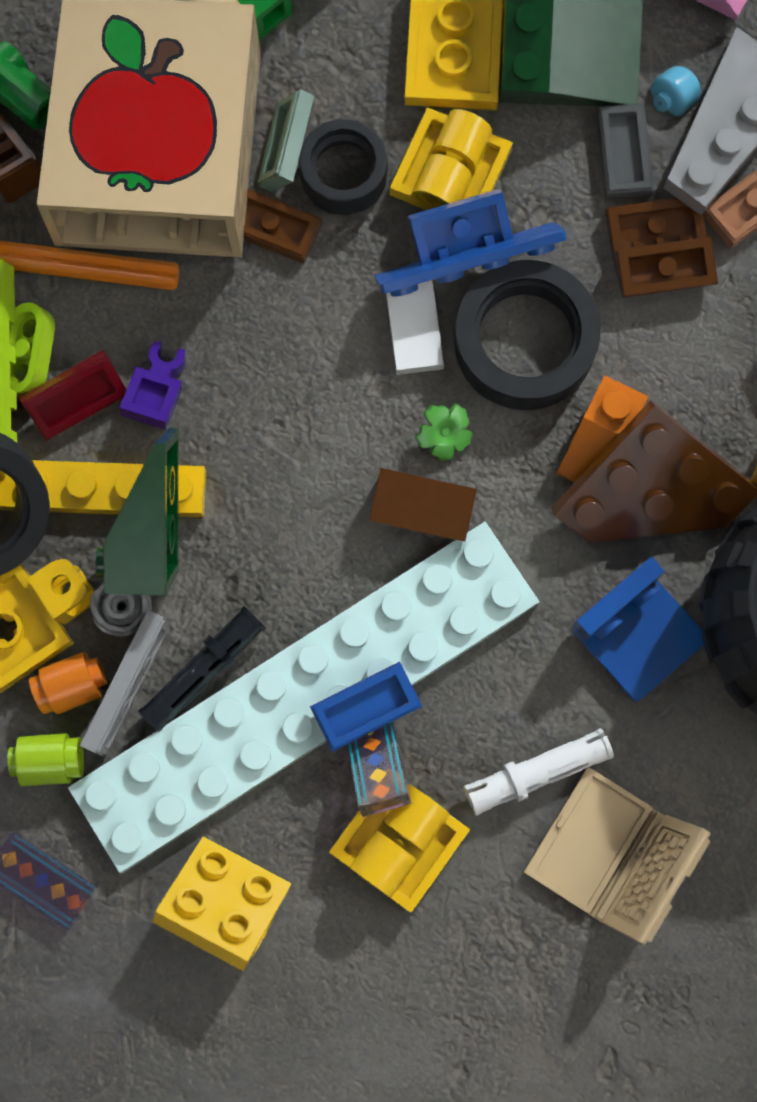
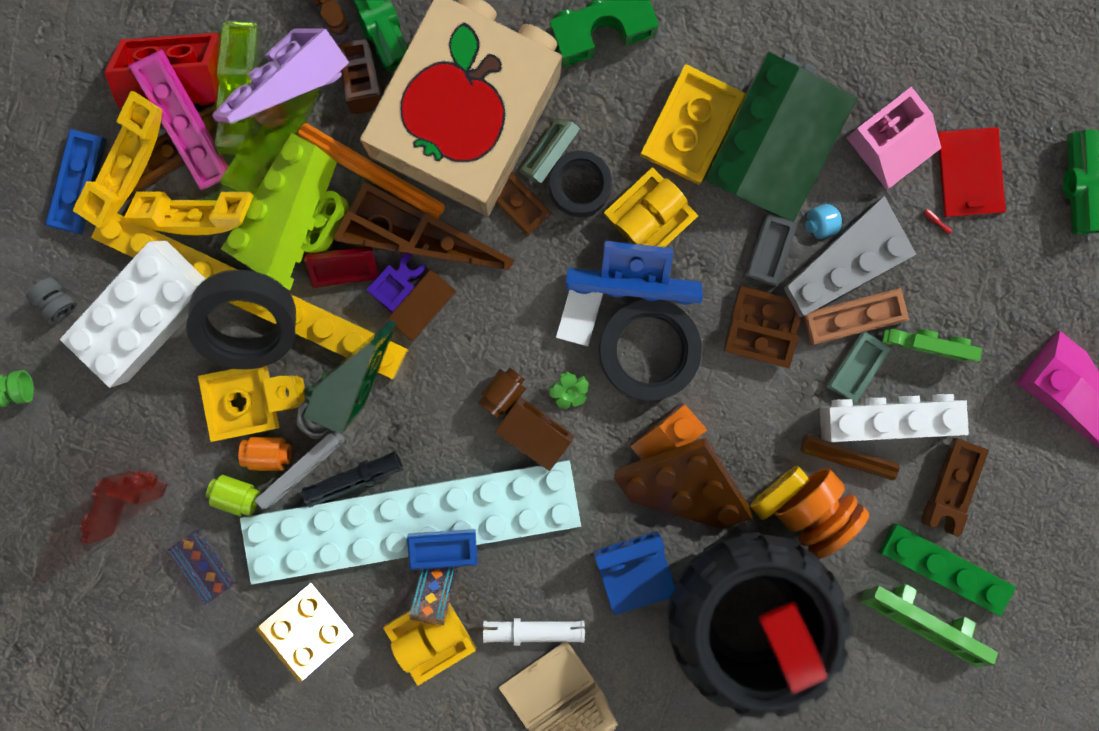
camera: 20 degrees right, 10 degrees up
(117, 313) = (392, 225): none -> reddish brown wedge
(203, 402) = (422, 305): none -> reddish brown tile
(356, 468) = (502, 392): none -> reddish brown brick

